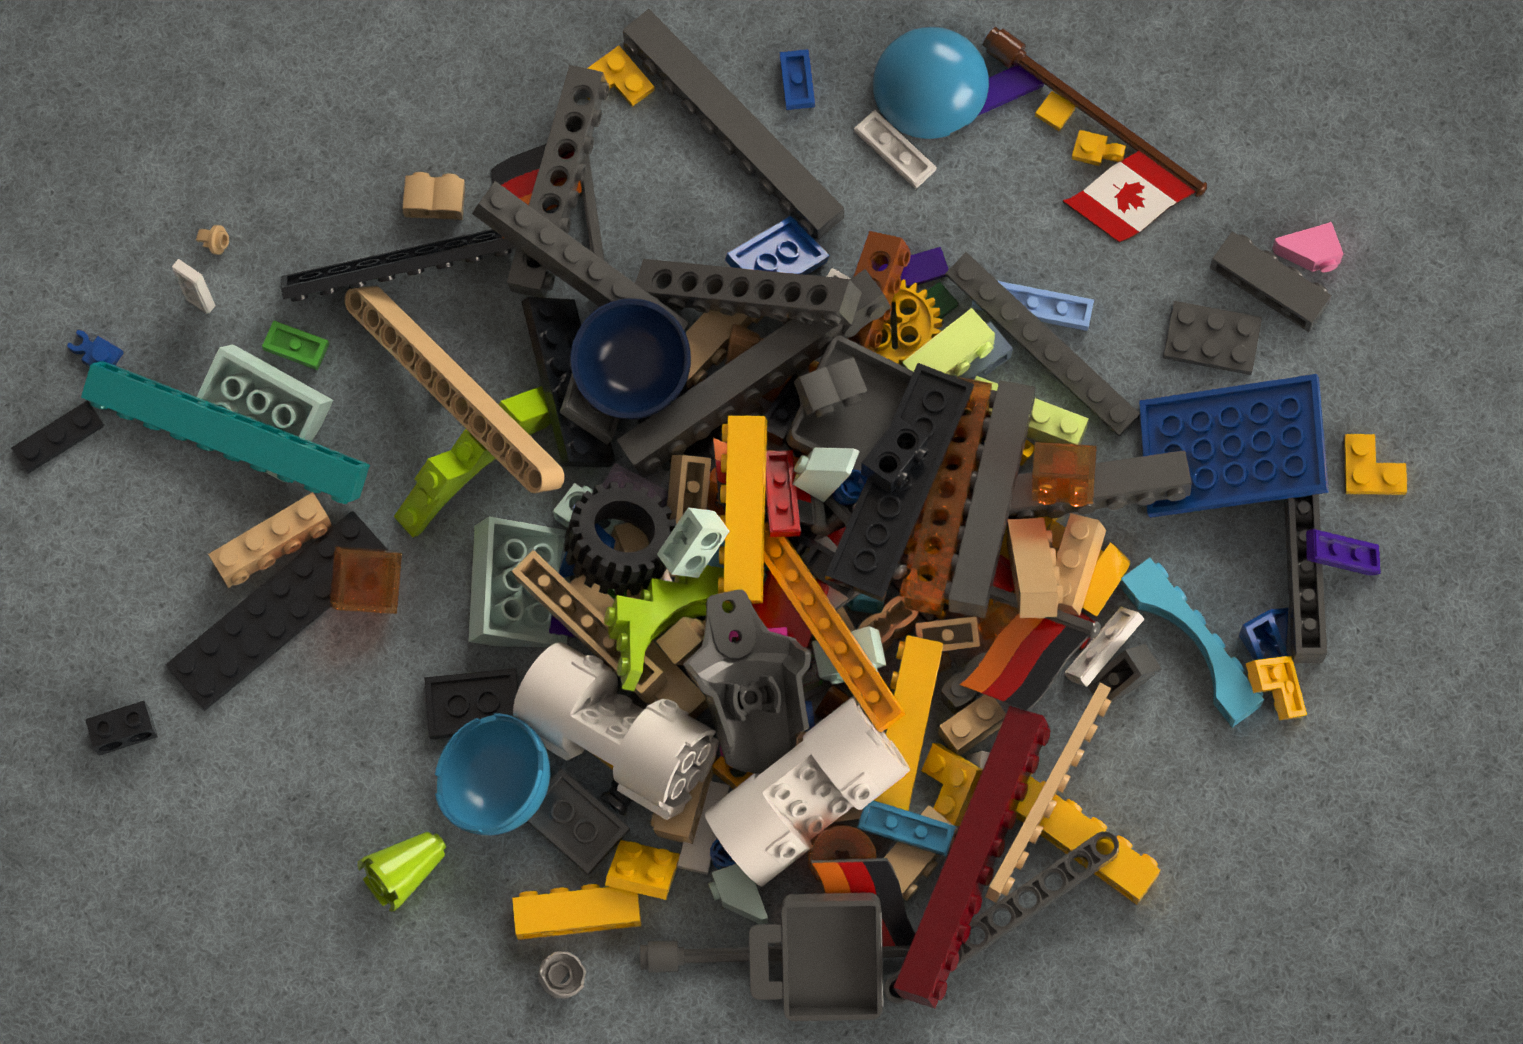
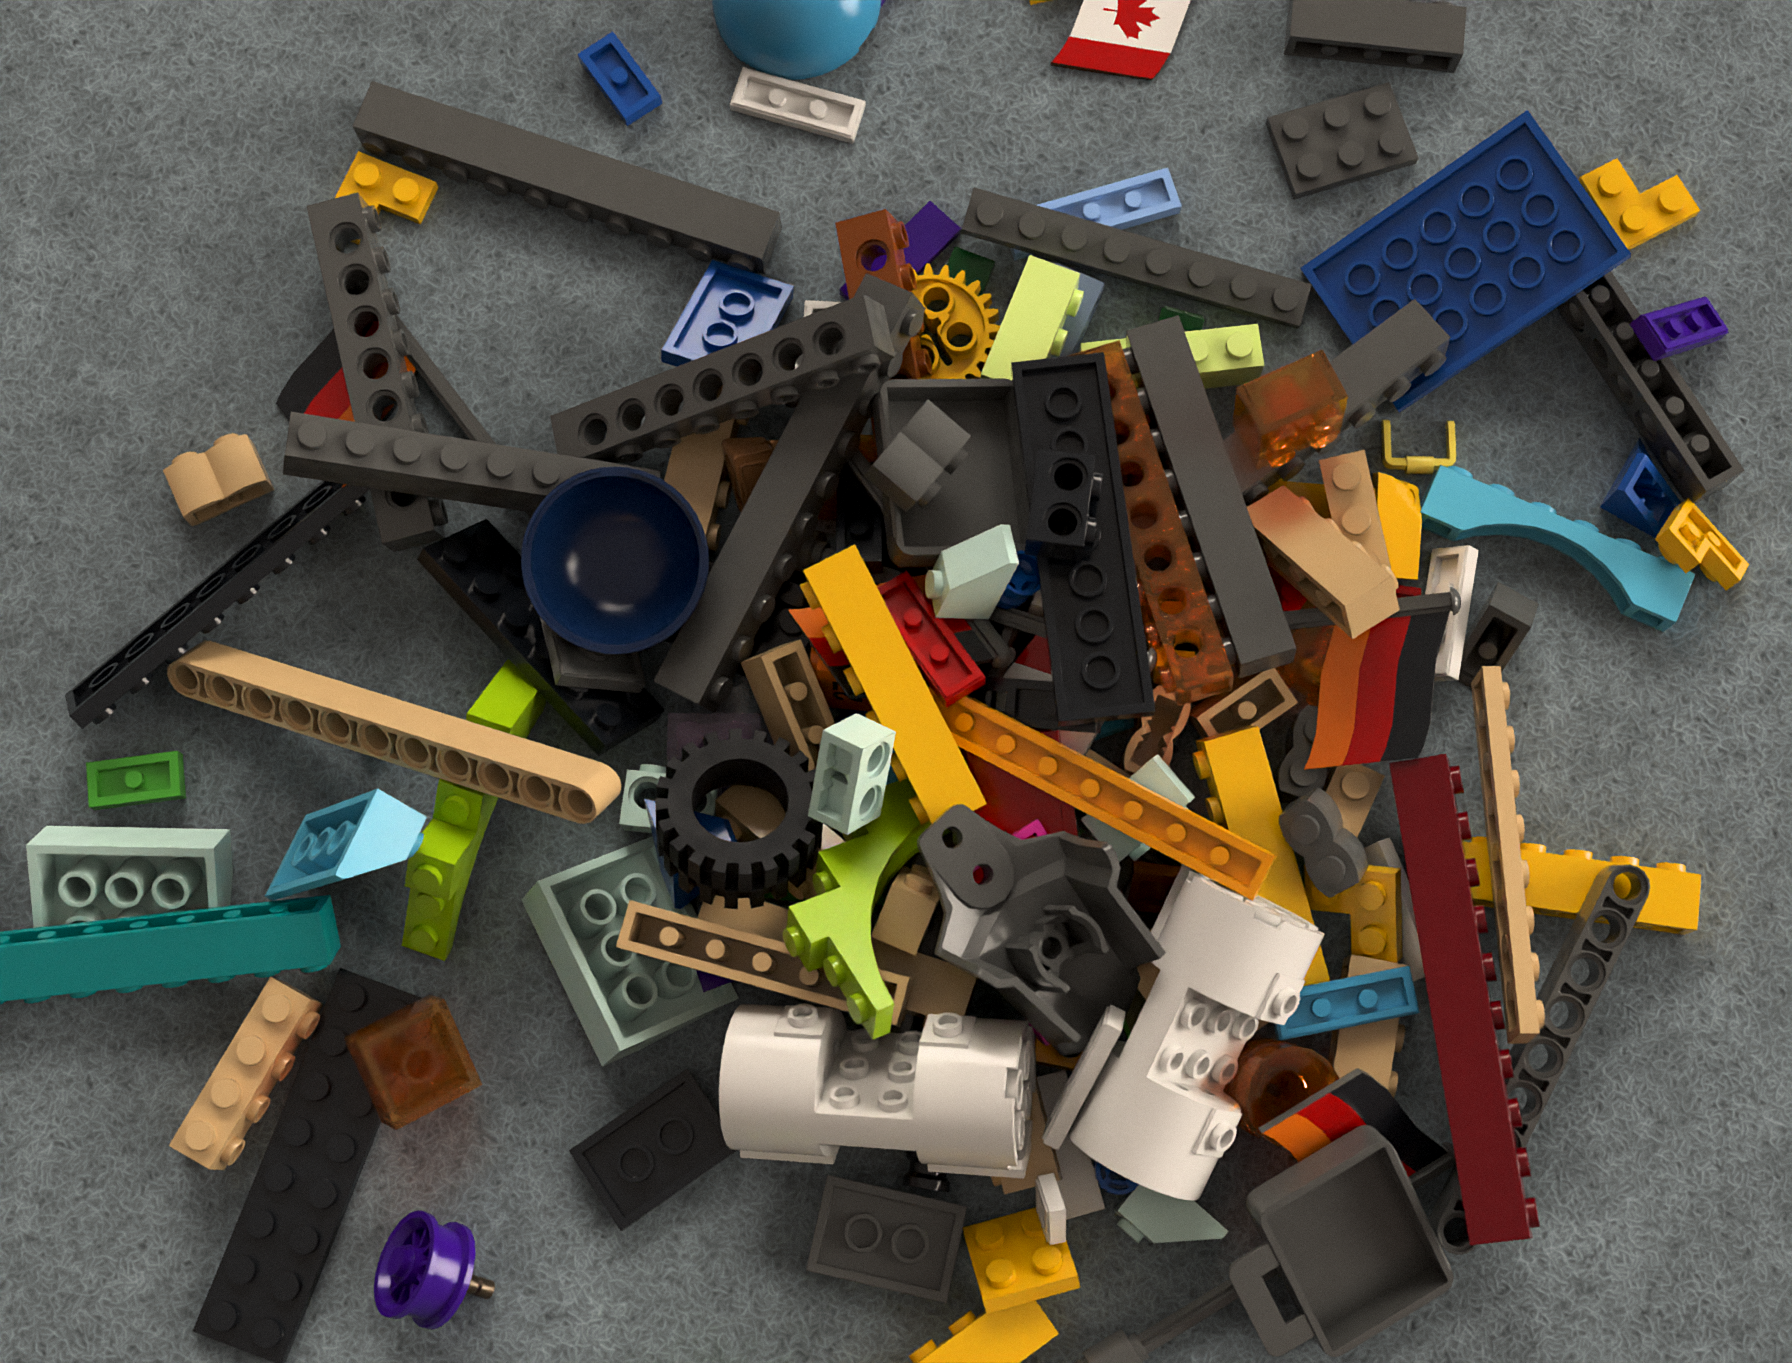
camera: 30 degrees left, 5 degrees up
(312, 698) = (427, 1271): none -> dark purple wheel
(395, 439) = (347, 842): none -> medium azure slope
(492, 775) = (745, 1247): dark azure piece -> none
(673, 848) = (1050, 1209): none -> white tile
(731, 781) = (1083, 1076): none -> white tile
(944, 726) = (1330, 852): none -> dark grey brick
(1049, 393) = (1189, 320): none -> dark green tile
(1143, 553) = (1418, 464): none -> light yellow piece

